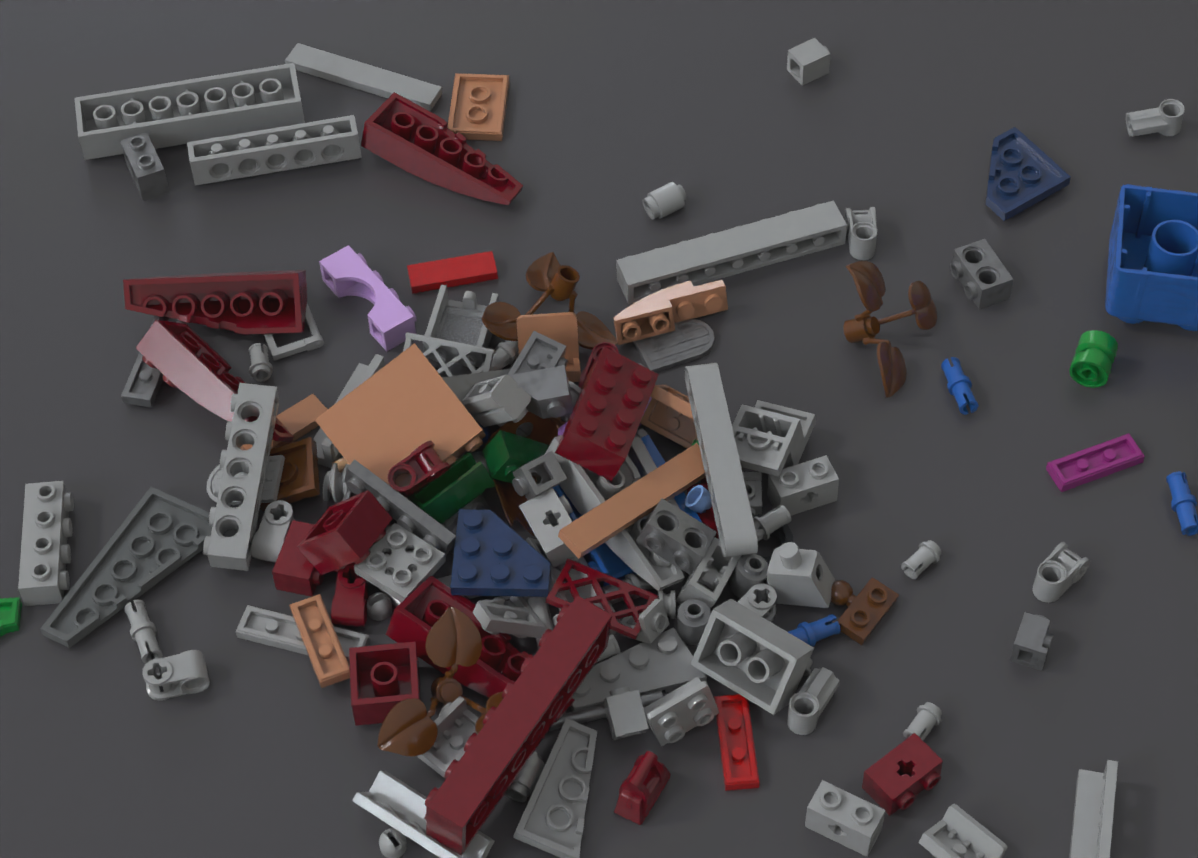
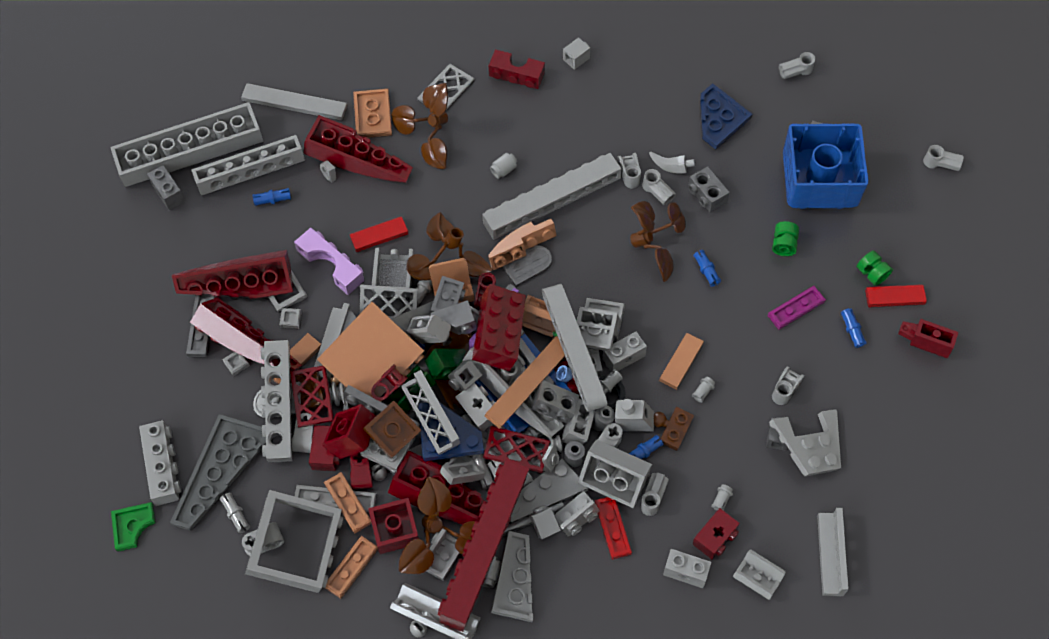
camera: 10 degrees left, 10 degrees up
(194, 421) = (235, 363): none -> light grey tile
(197, 731) = (286, 578): none -> light grey window
(260, 366) = (271, 319): light grey pin -> none
(291, 371) = (290, 318): none -> light grey tile
(295, 510) = (297, 389): none -> dark red window
(300, 199) = (271, 196): none -> blue pin
(305, 737) = (351, 567): none -> nougat tile
(393, 175) = (328, 171): none -> light grey tile
(409, 535) = (392, 429): none -> reddish brown hinge
(486, 517) = (439, 413): none -> light grey fence
(573, 86) = (436, 99): none -> reddish brown plant
(595, 71) = (461, 88): none -> light grey window
(642, 788) = (562, 569): dark red piece -> none
(728, 81) = (528, 74): none -> dark red arch
(893, 514) = (681, 361): none -> nougat tile
(896, 256) = (658, 187): none -> light grey piece
(932, 234) = (672, 165): none -> light grey bar
(1084, 674) = (813, 452): none -> light grey wing

